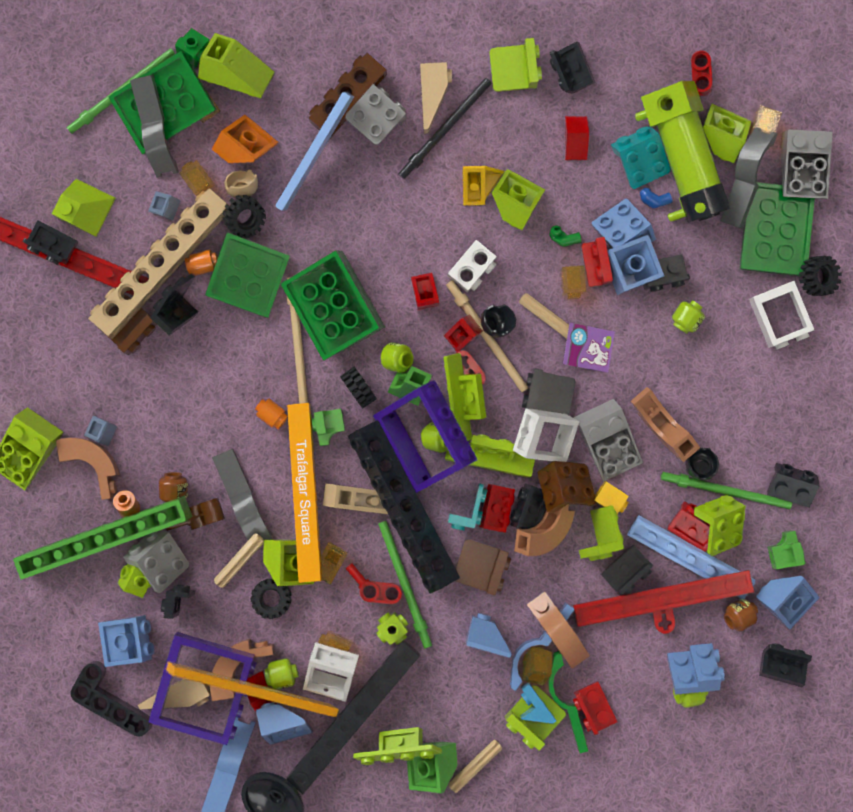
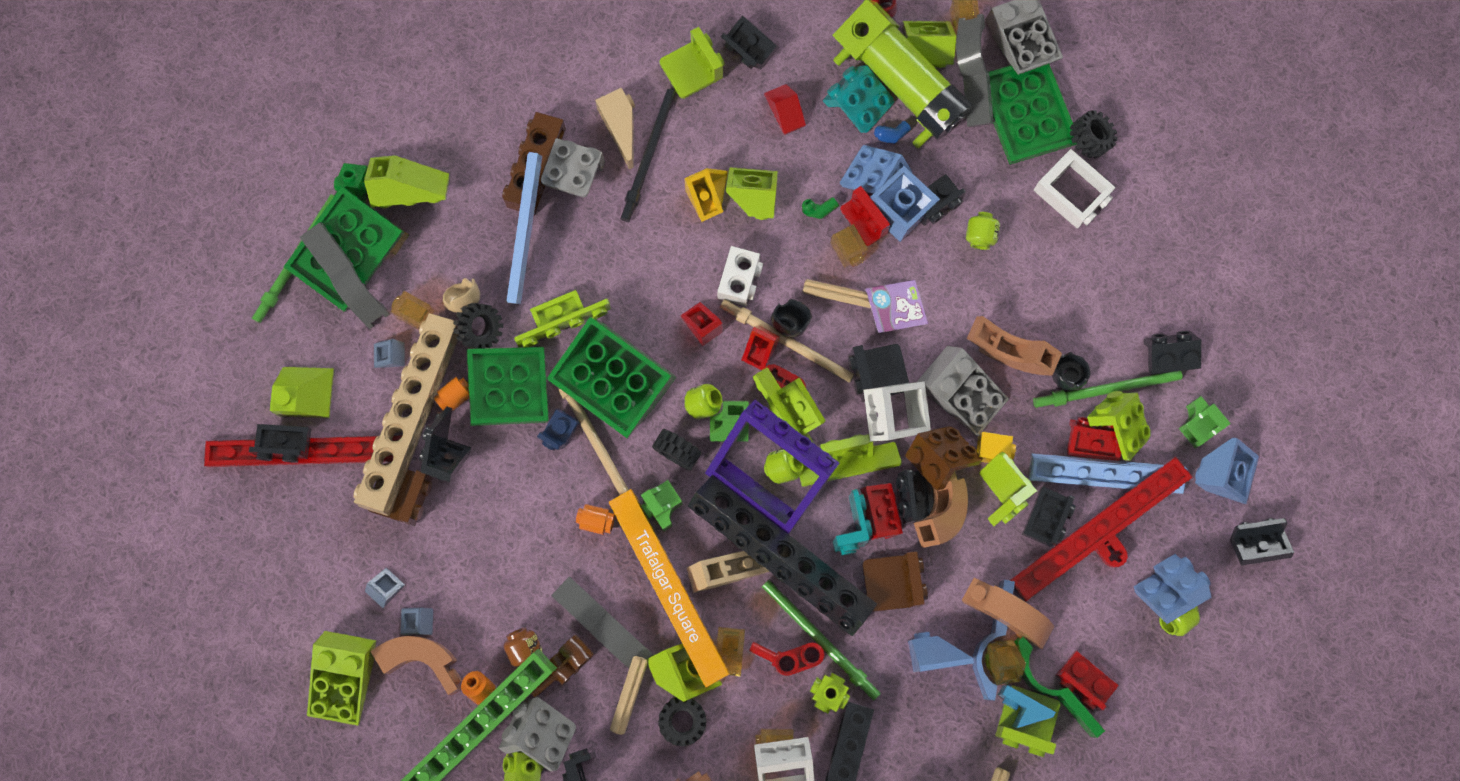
camera: 25 degrees left, 10 degrees down
(86, 393) = (383, 587): none -> sand blue slope
(243, 141) = (444, 253): orange slope -> none
(272, 329) = (558, 430): none -> dark blue bracket
(313, 233) = (560, 314): none -> lime bracket
(741, 615) = (1189, 510): dark orange head -> none

